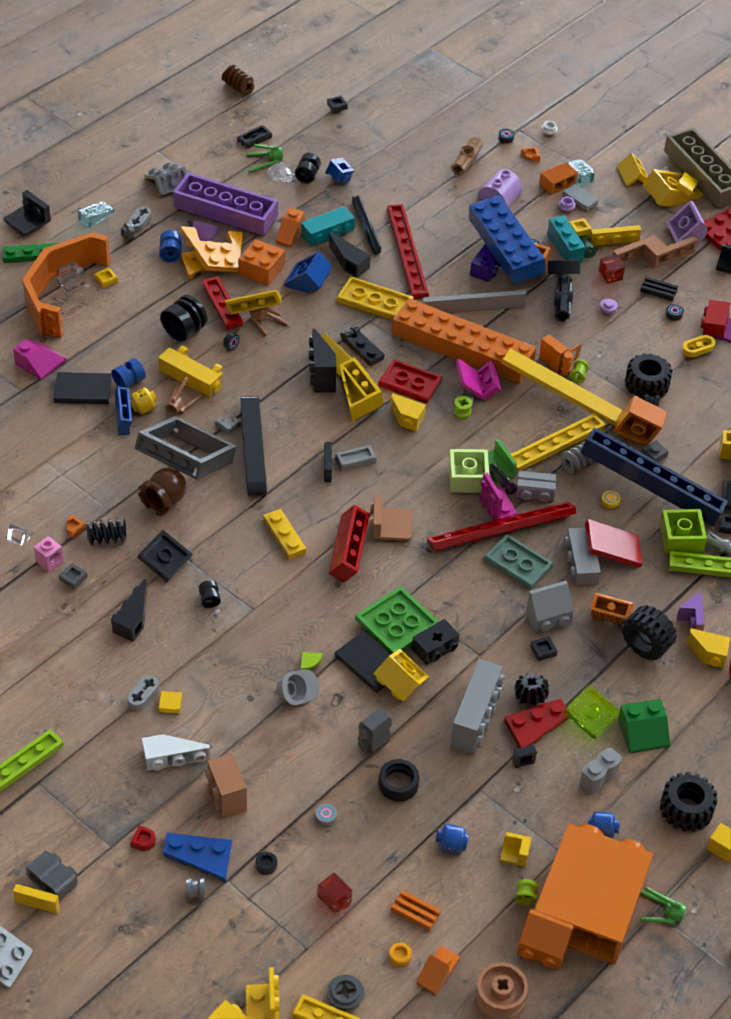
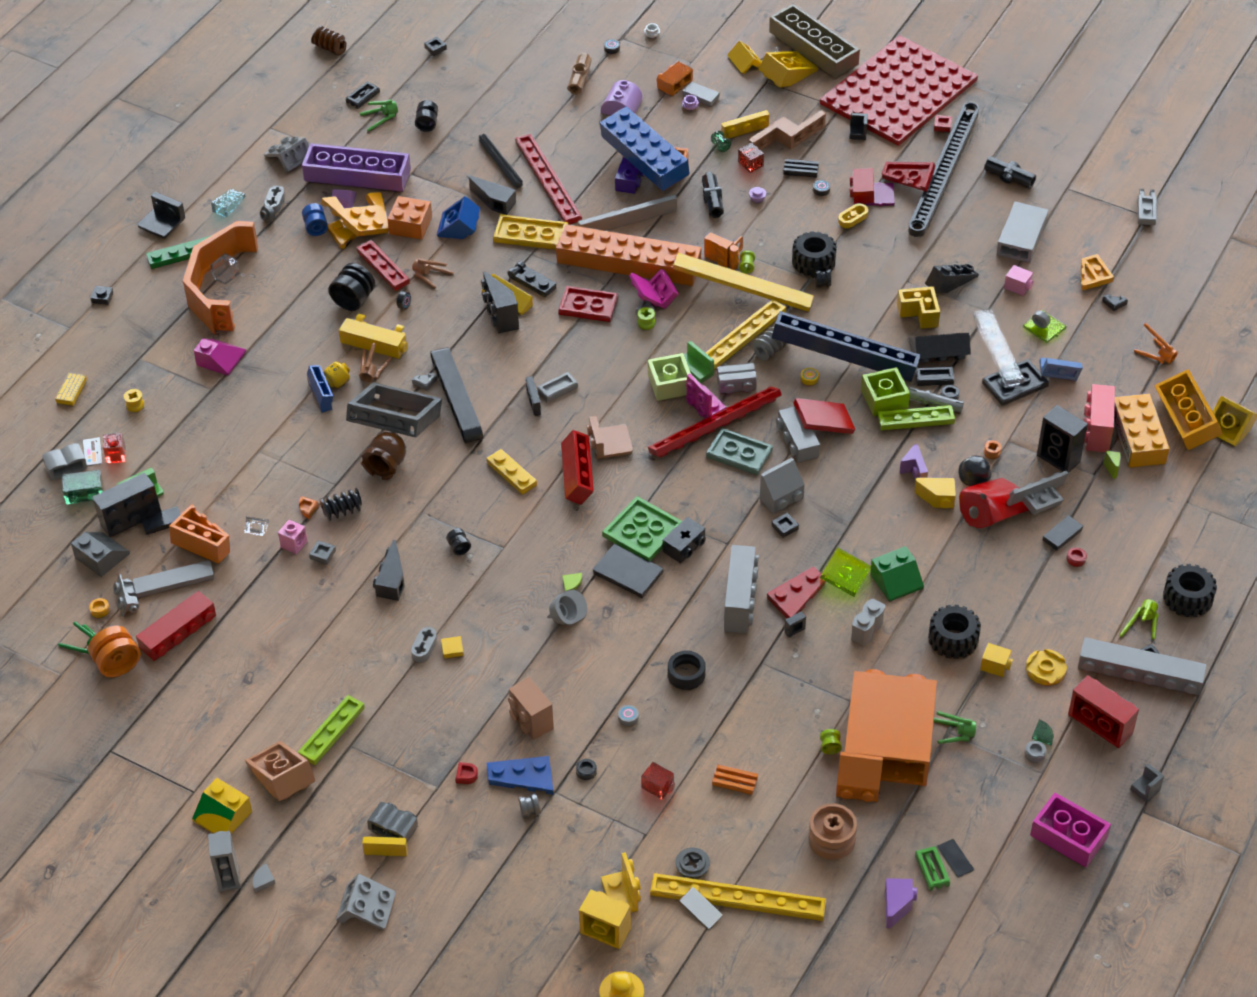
camera: 10 degrees left, 0 degrees up
(82, 388) = (272, 374): black tile -> none
(106, 277) = (259, 263): yellow tile -> none
(129, 373) = (314, 351): blue wheel -> none
(165, 555) = (405, 515): black hinge -> none
(170, 751) = (467, 690): white slope -> none
(253, 302) = (416, 258): yellow slope -> none
(281, 172) = (402, 126): clear plate -> none
(290, 227) = (427, 177): orange slope -> none
(318, 228) = (457, 172): teal brick -> none
(340, 170) = (459, 112): blue brick -> none
(360, 389) = (543, 321): yellow wedge -> none
(374, 731) = (652, 630): dark grey brick -> none
(400, 675) = (661, 576): yellow slope -> none
(400, 954) = (731, 820): light orange tile -> none
(407, 412) = (594, 333): yellow slope -> none
(437, 970) = (769, 825): orange slope -> none
(452, 839) = (750, 710): blue head -> none
(502, 479) = (703, 378): black axle -> none
(515, 849) = (810, 707): yellow panel -> none
(531, 153) = (640, 59): orange tile -> none
(531, 689) = (785, 563): black gear -> none
(563, 266) = (705, 164): black tyre -> none
(565, 239) = (699, 138): teal brick -> none
(581, 227) = (709, 124): yellow panel -> none
(585, 173) = (700, 69): clear light blue slope -> none
(606, 823) = (885, 665): blue head -> none
(610, 609) = (839, 476): orange brick -> none
(640, 421) = (819, 297): orange brick -> none
(649, 632) = (879, 489): black tyre -> none
(655, 451) = (839, 322): dark grey plate -> none
(687, 184) = (801, 60): yellow tile -> none
(687, 223) = (812, 99): lavender brick -> none

